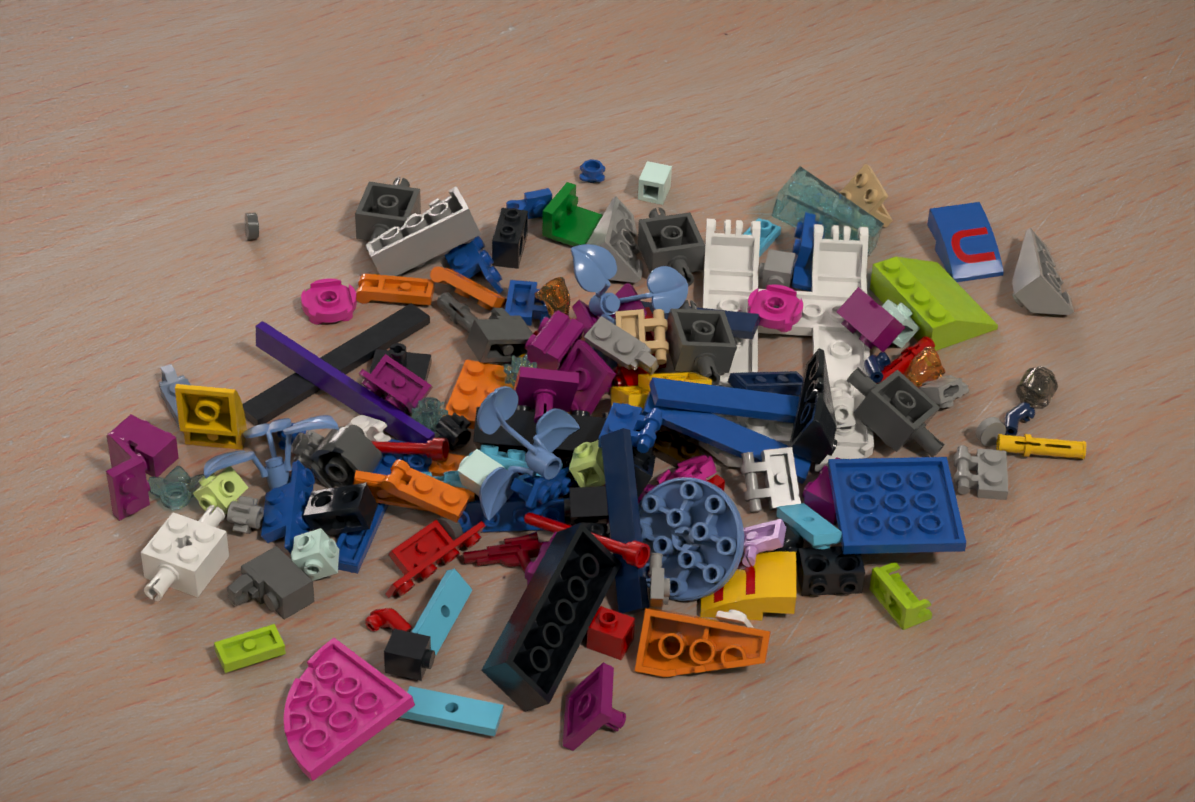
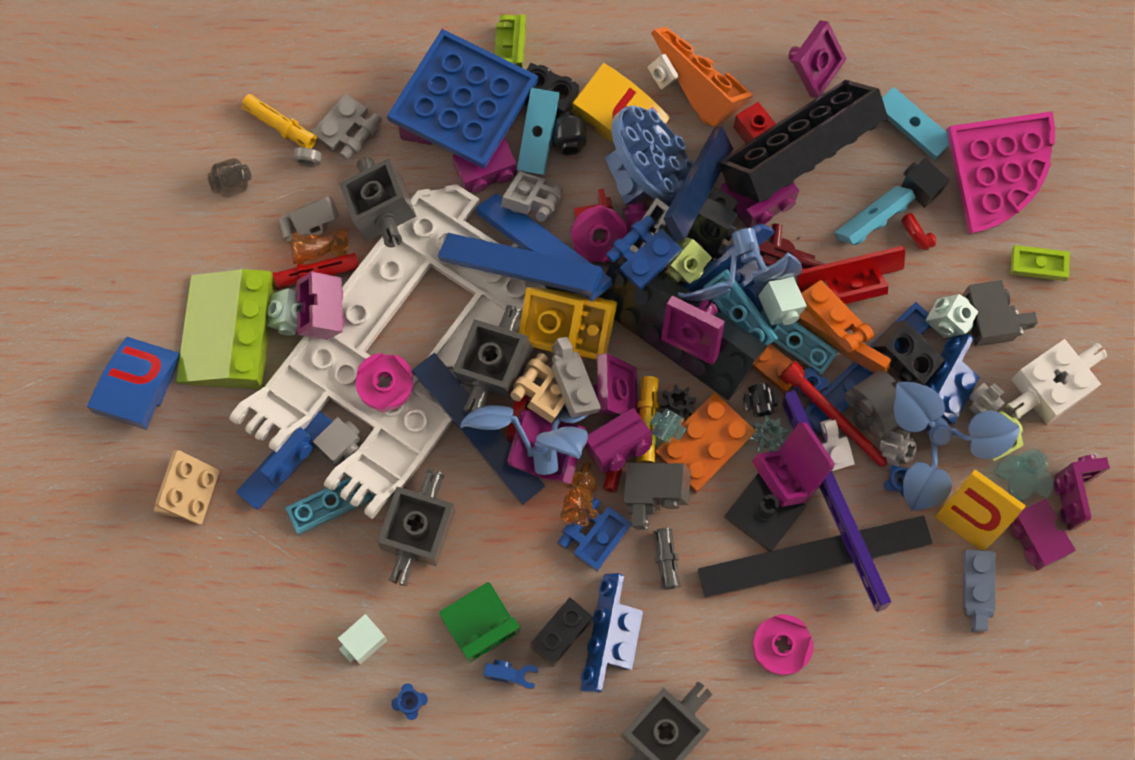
camera: 150 degrees left, 30 degrees up
(395, 289) = (710, 625): orange plate -> none
(424, 236) = (643, 657): light grey wedge -> none
(468, 287) = (642, 582): orange plate -> none
(616, 235) = (473, 560): light grey wedge -> none
(633, 552) = (714, 145): red piece -> none
(659, 585) = (707, 119): light grey plate -> none
(762, 538) = (596, 126): lavender plate -> none
(773, 382) = (454, 300): dark blue tile -> none
(811, 195) = (242, 491): clear light blue wedge -> none
(815, 417) = (459, 218): black wedge -> none
(843, 408) = (421, 236): white bracket -> none
(875, 365) = (351, 268): dark blue arm -> none
(1019, 412) = (270, 166): dark blue arm -> none
(1037, 281) = (119, 291): light grey wedge -> none

